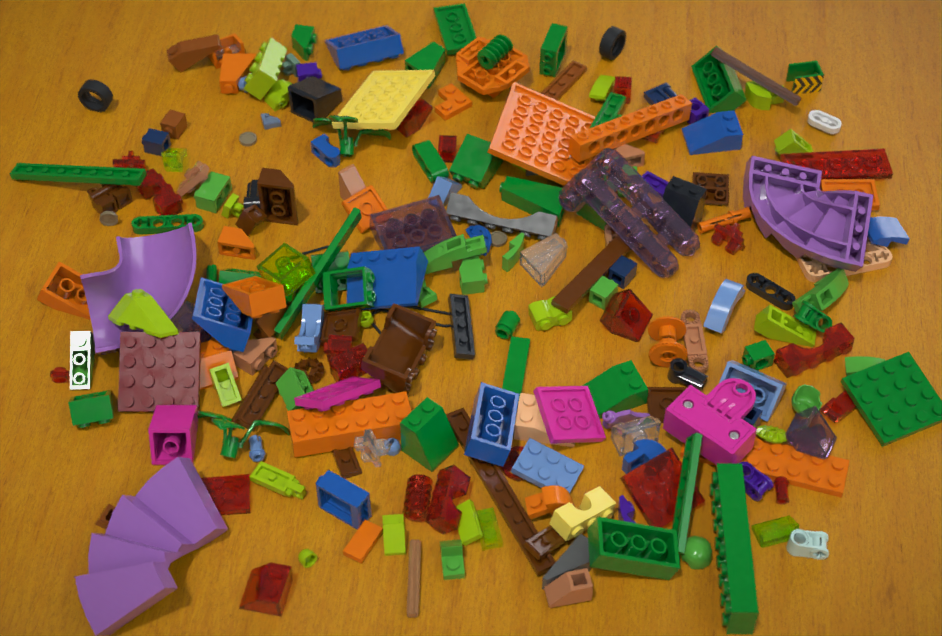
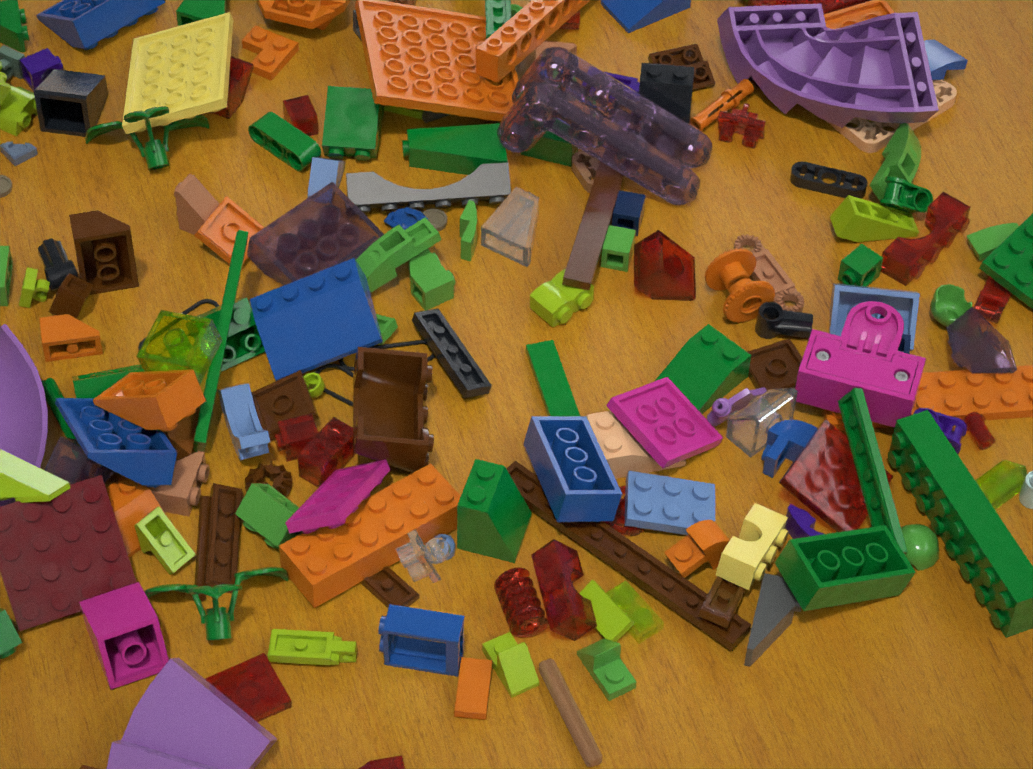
camera: 25 degrees left, 0 degrees up
(257, 452) = (258, 619): medium blue pin -> none
(307, 558) = (409, 737): lime hinge -> none
(325, 152) = (126, 171): blue leg -> none
(330, 288) = (246, 361): green window -> none
(507, 324) = (512, 330): green brick -> none
(569, 588) = (786, 650): nougat slope -> none
(723, 305) = (786, 216): medium blue arch -> none
(771, 434) = (936, 362): lime gear -> none

